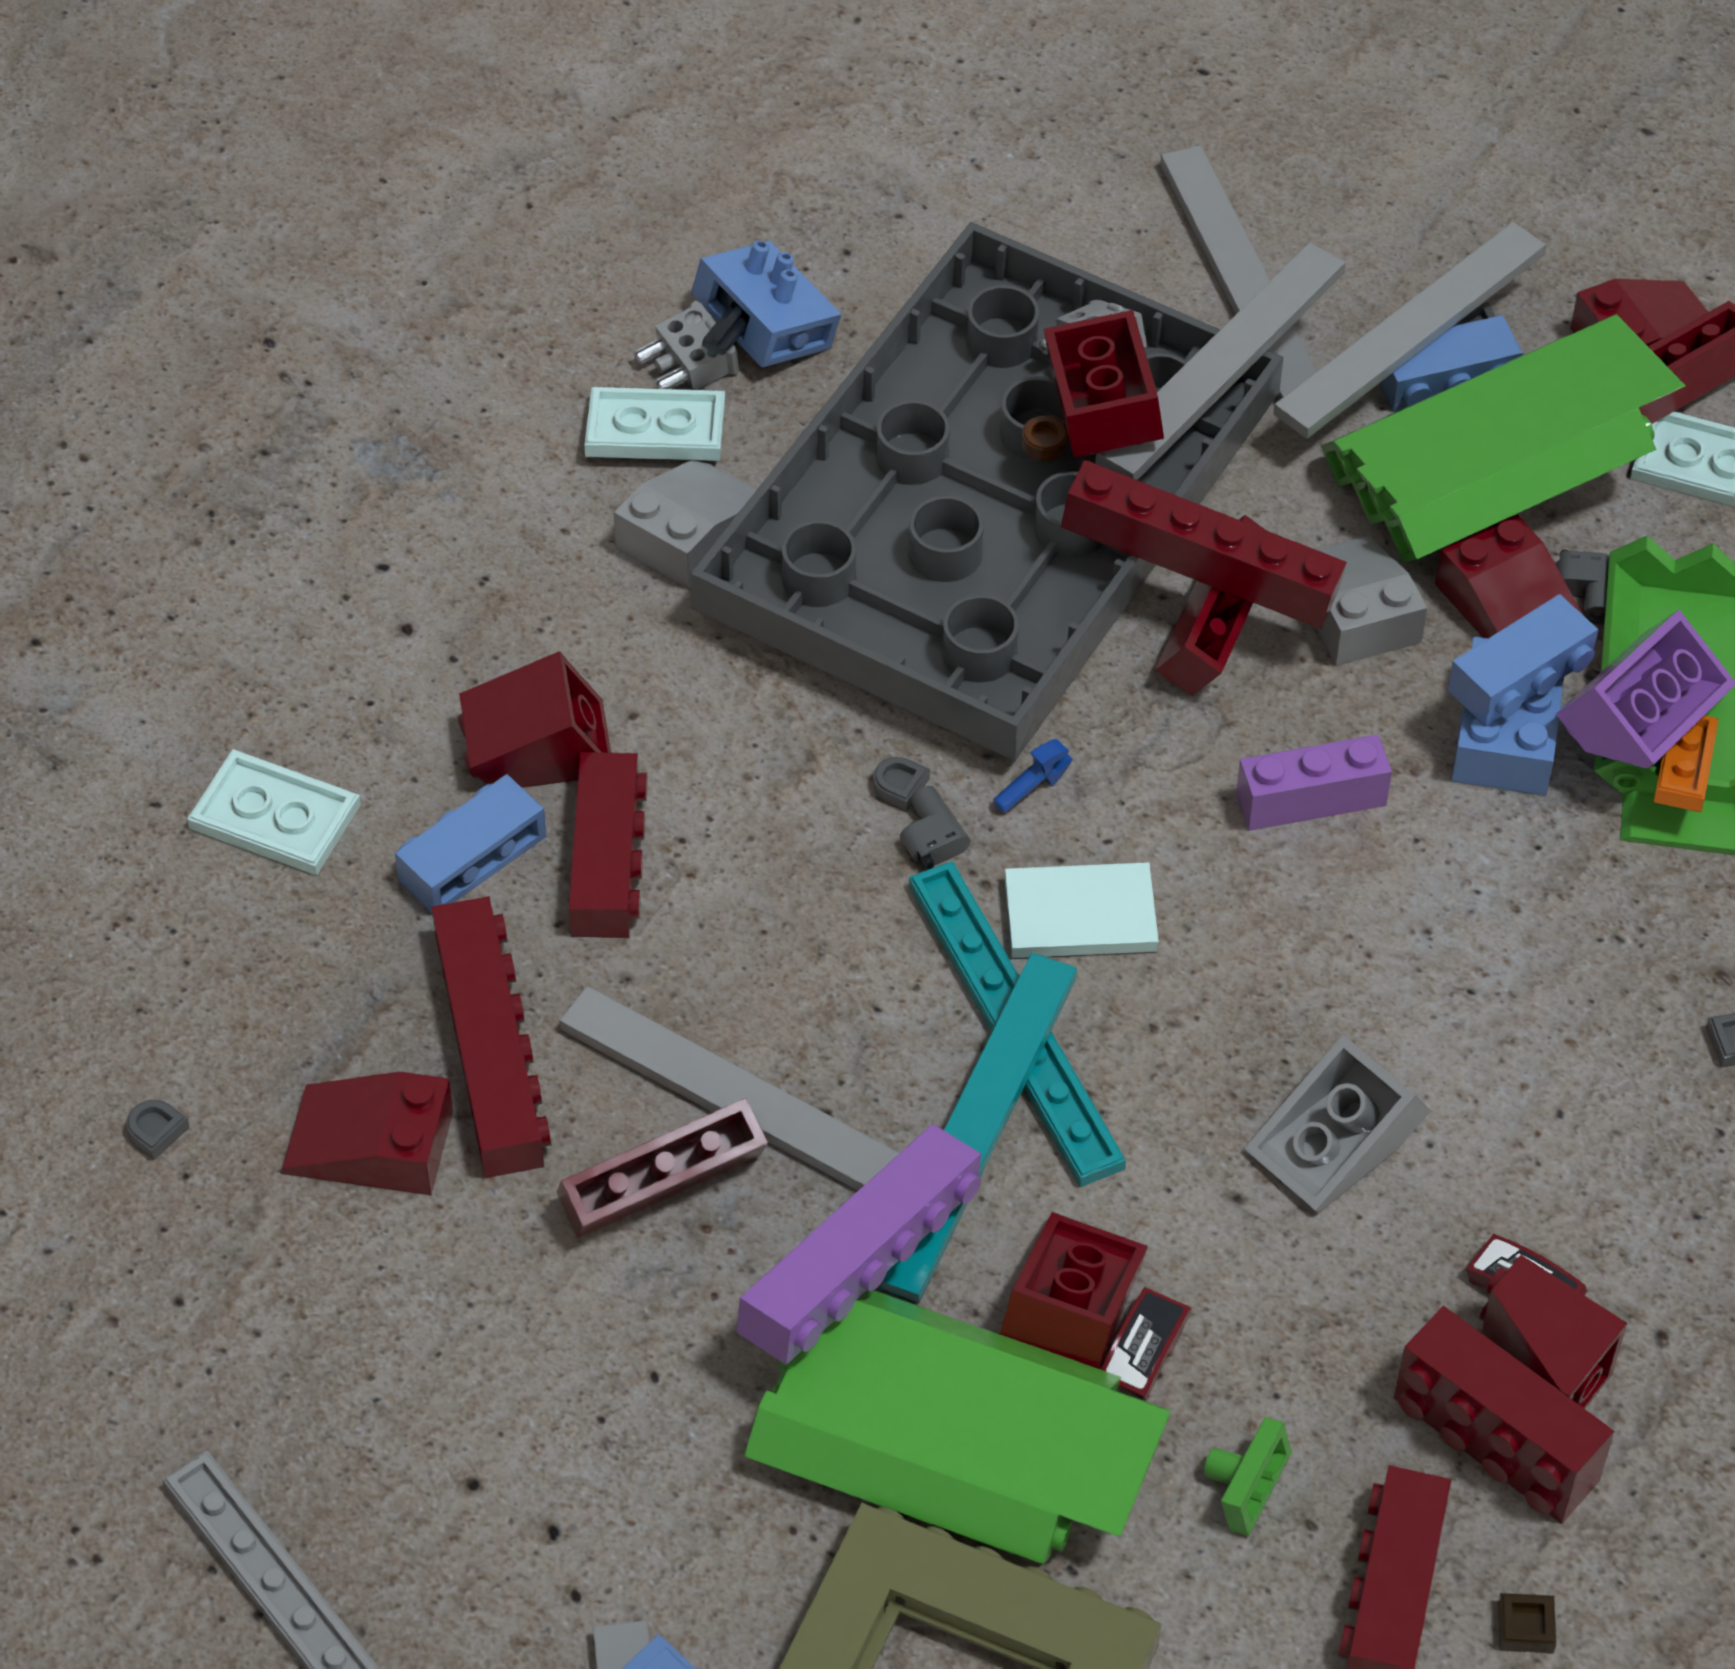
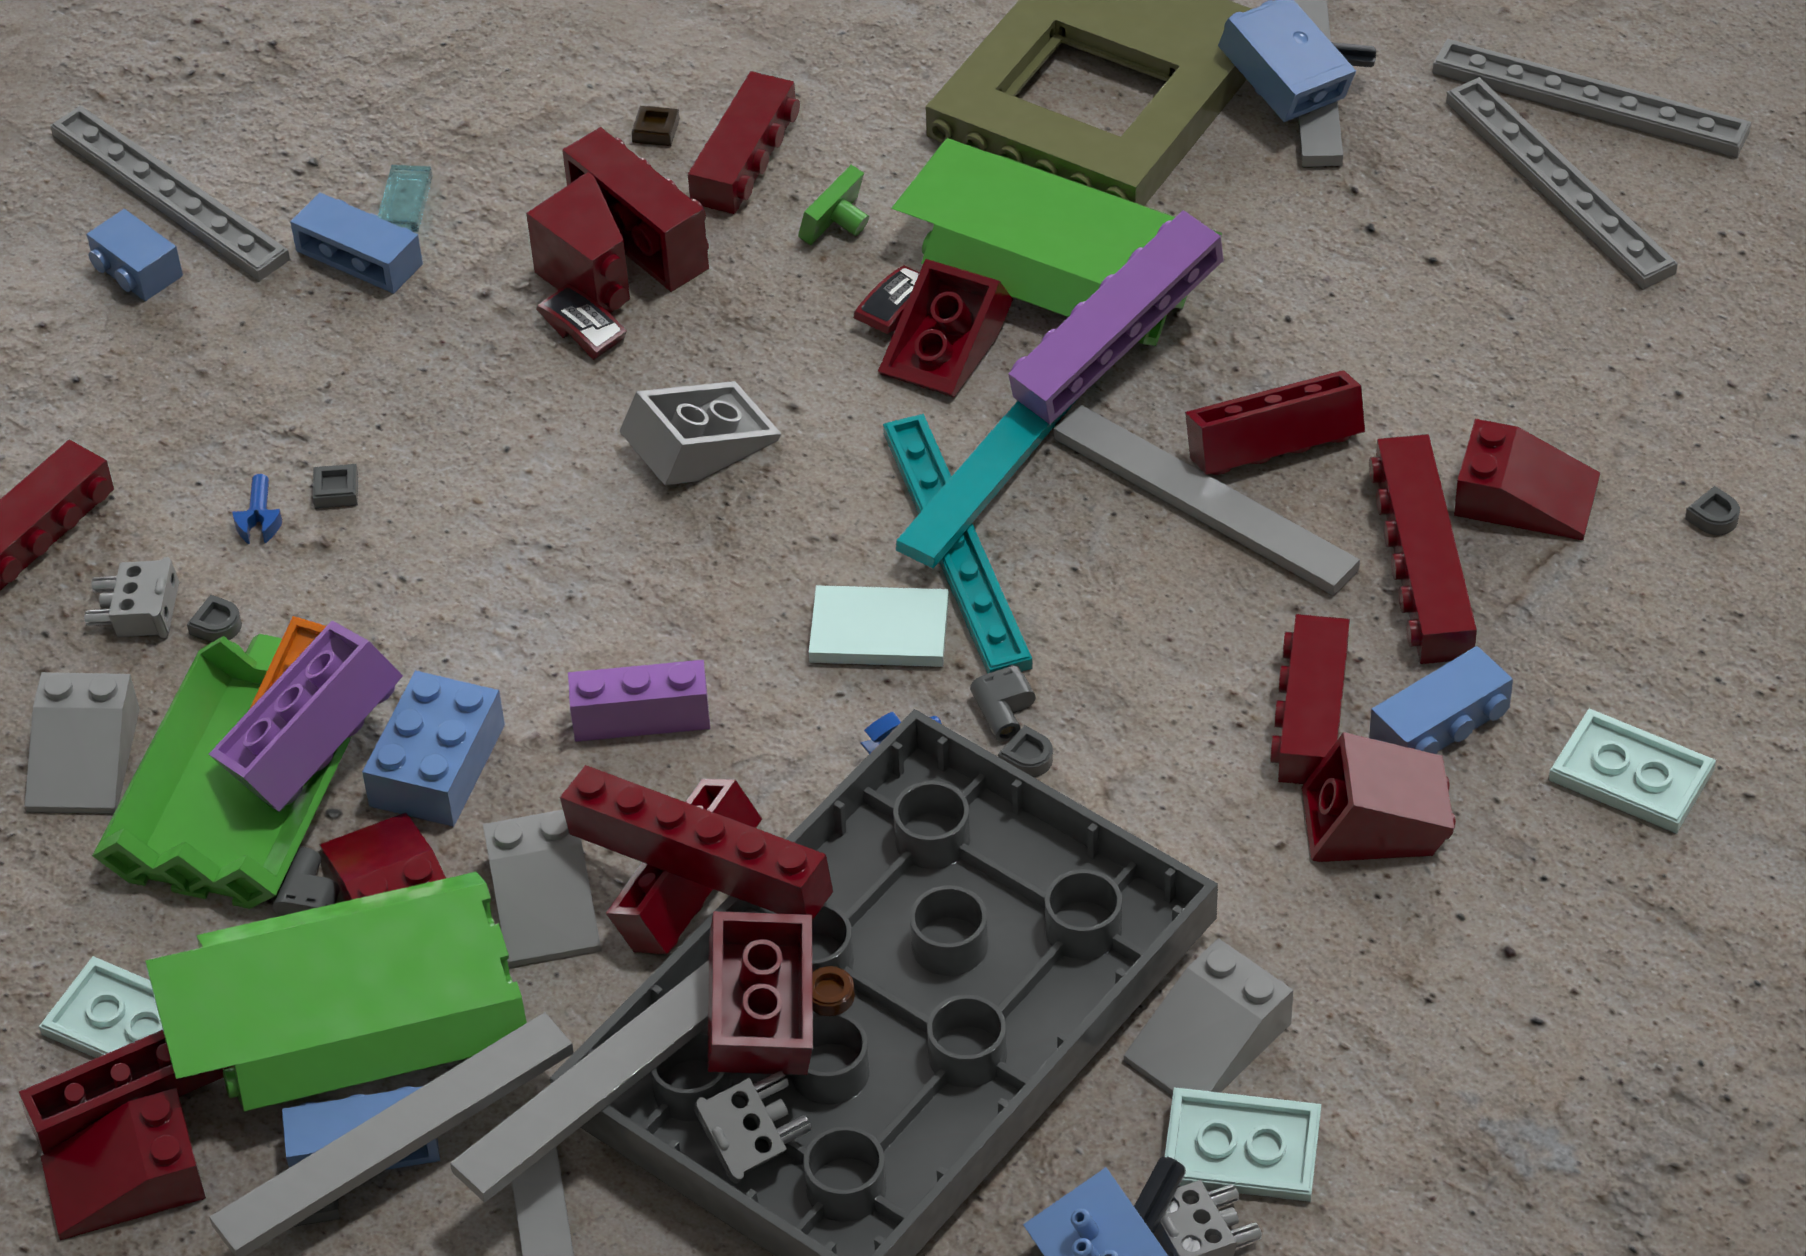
camera: 170 degrees left, 5 degrees down
(1523, 660) = (415, 726): medium blue brick -> none

